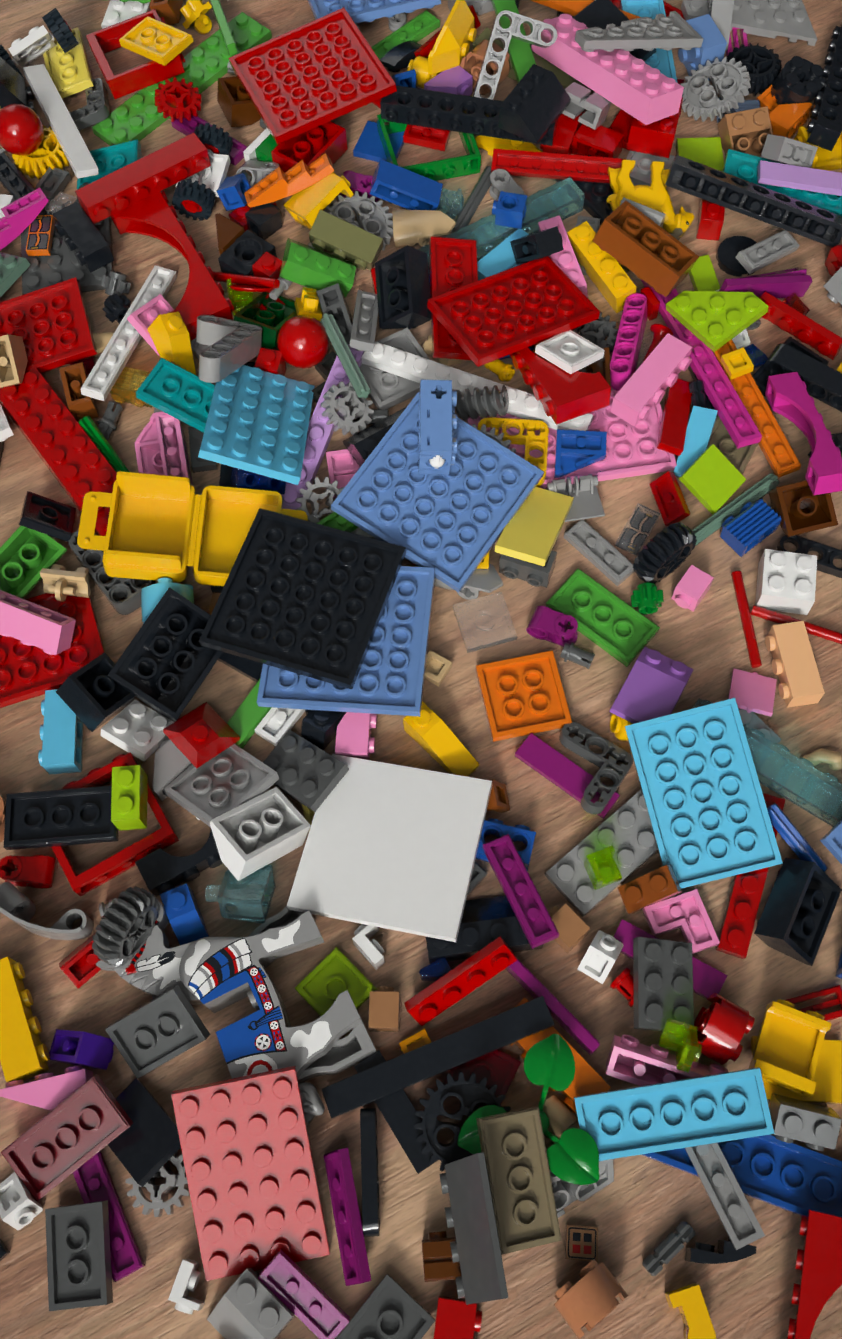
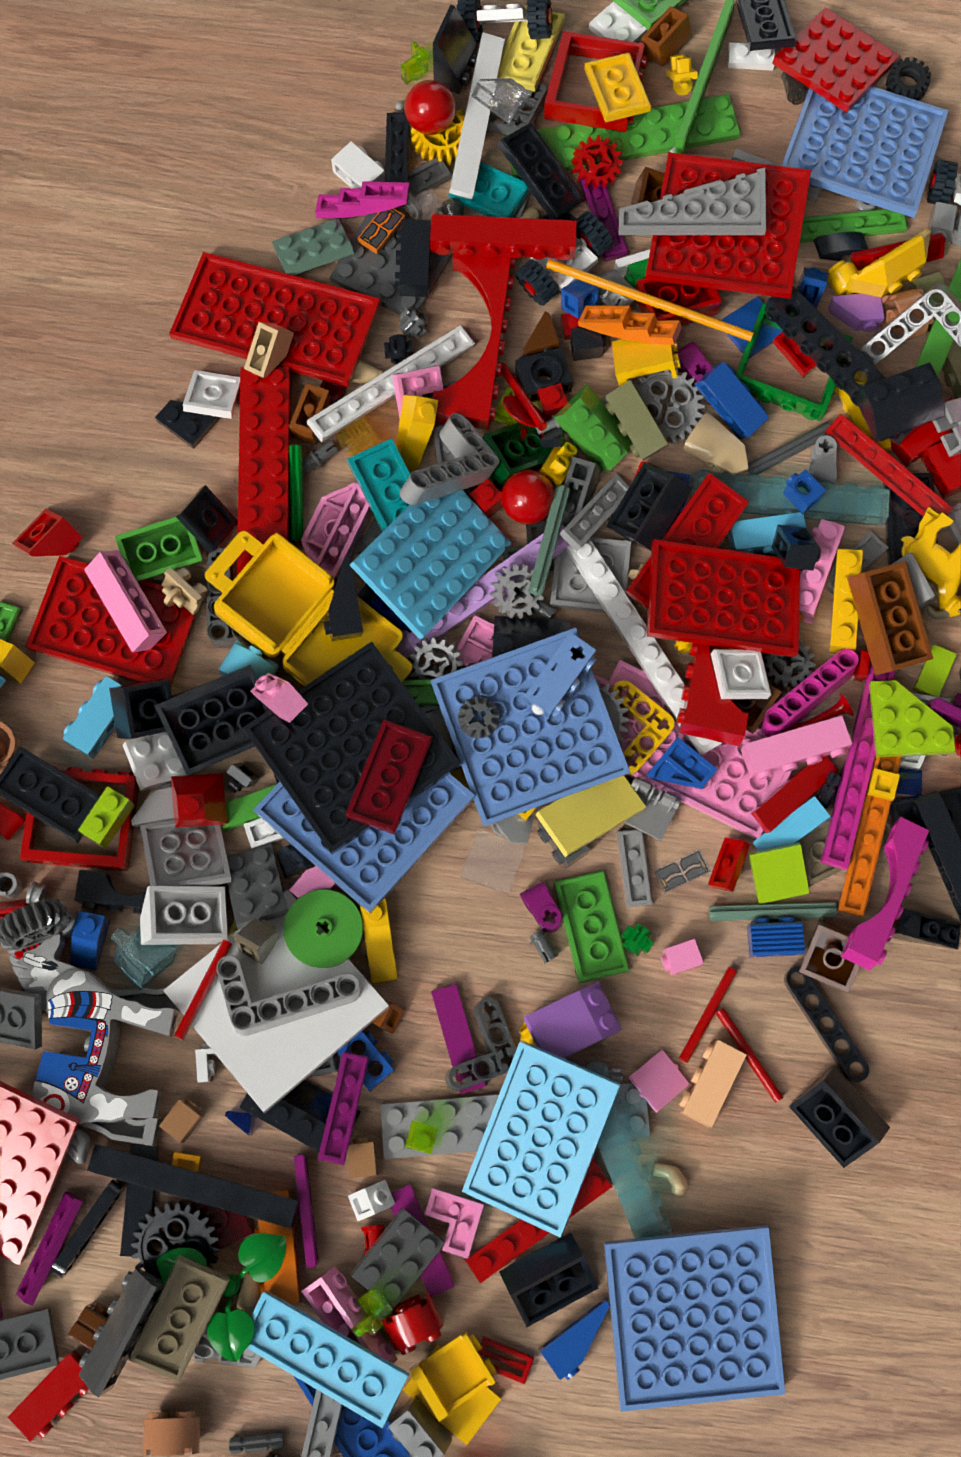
camera: 30 degrees right, 10 degrees up
(69, 94) = (501, 96): none -> clear slope
(136, 125) = (541, 171): none -> black tile
(213, 592) = (279, 696): none -> bright pink slope
(221, 501) = (343, 614): none -> black slope
(224, 696) = (241, 776): none -> black tile
(287, 70) = (708, 209): none -> light grey wing
(290, 156) = (649, 300): none -> light orange piece
(290, 294) = (553, 438): none -> black tile
(322, 880) = (202, 991): none -> red bar
(332, 978) = (162, 1071): lime tile -> none
(339, 805) = (256, 940): none -> dark tan slope
(355, 595) = (389, 777): none -> dark red tile
(398, 515) = (476, 729): none -> dark grey gear
(399, 838) = (281, 1001): none -> light grey beam
(406, 769) = (325, 949): none -> bright green piece
(436, 668) = (422, 874): tan plate -> none
(451, 202) = (762, 441): clear light blue hat -> none
(460, 981) = (250, 1142): red plate -> none
(482, 404) = (631, 668): dark grey piece -> none
(523, 695) = (473, 948): orange plate -> none
(581, 1243) = (198, 1391): medium nougat tile -> none
(649, 889) = (447, 1178): dark orange plate -> none
(664, 553) = (680, 912): black gear -> none
(786, 581) = (764, 1009): white brick -> none
(793, 836) = (590, 1224): blue axle -> none

